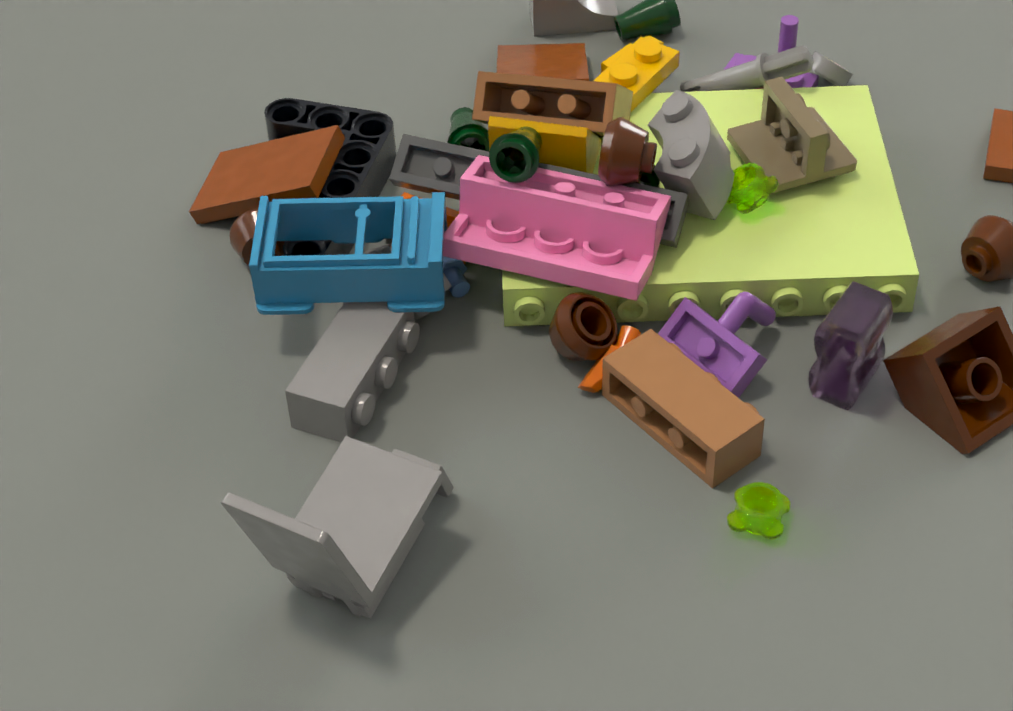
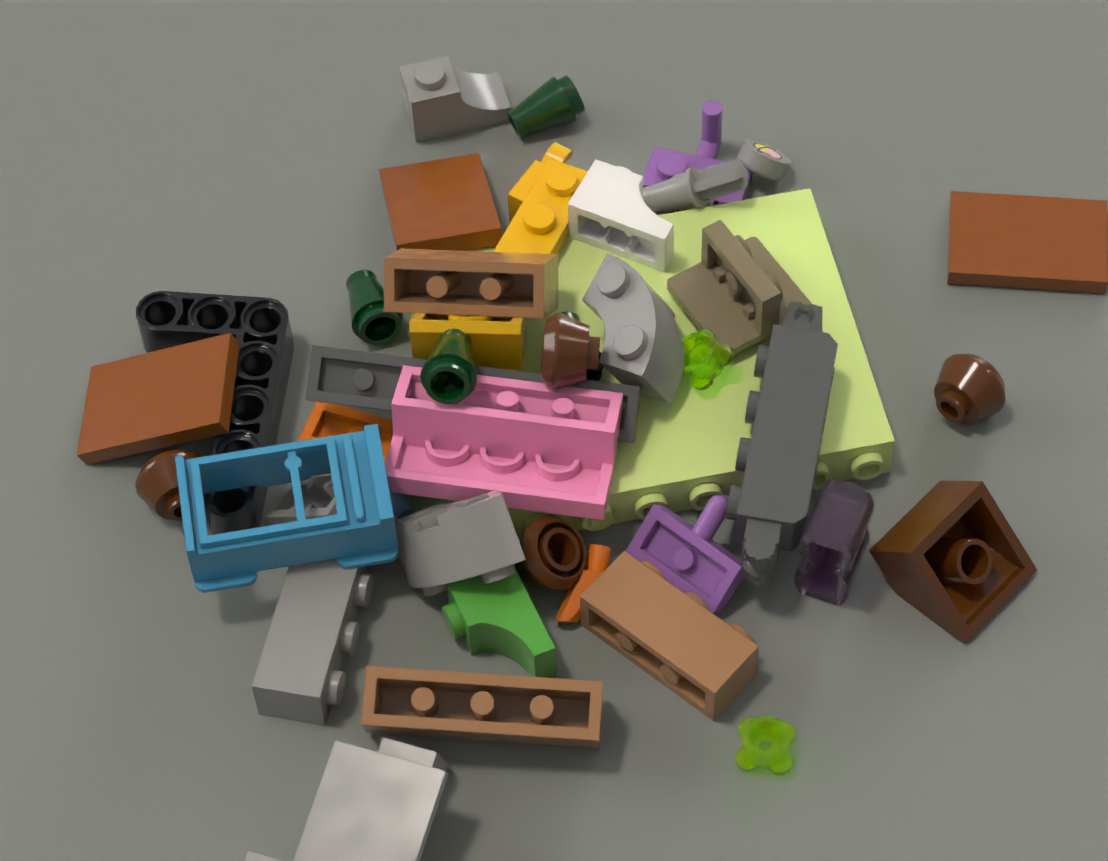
camera: 10 degrees left, 10 degrees up
(495, 437) = (482, 707): none -> medium nougat brick
(498, 299) = (458, 543): none -> light grey brick
(526, 374) = (500, 621): none -> bright green arch
(693, 68) = (613, 217): none -> white arch
(814, 256) = (784, 441): none -> dark grey hinge

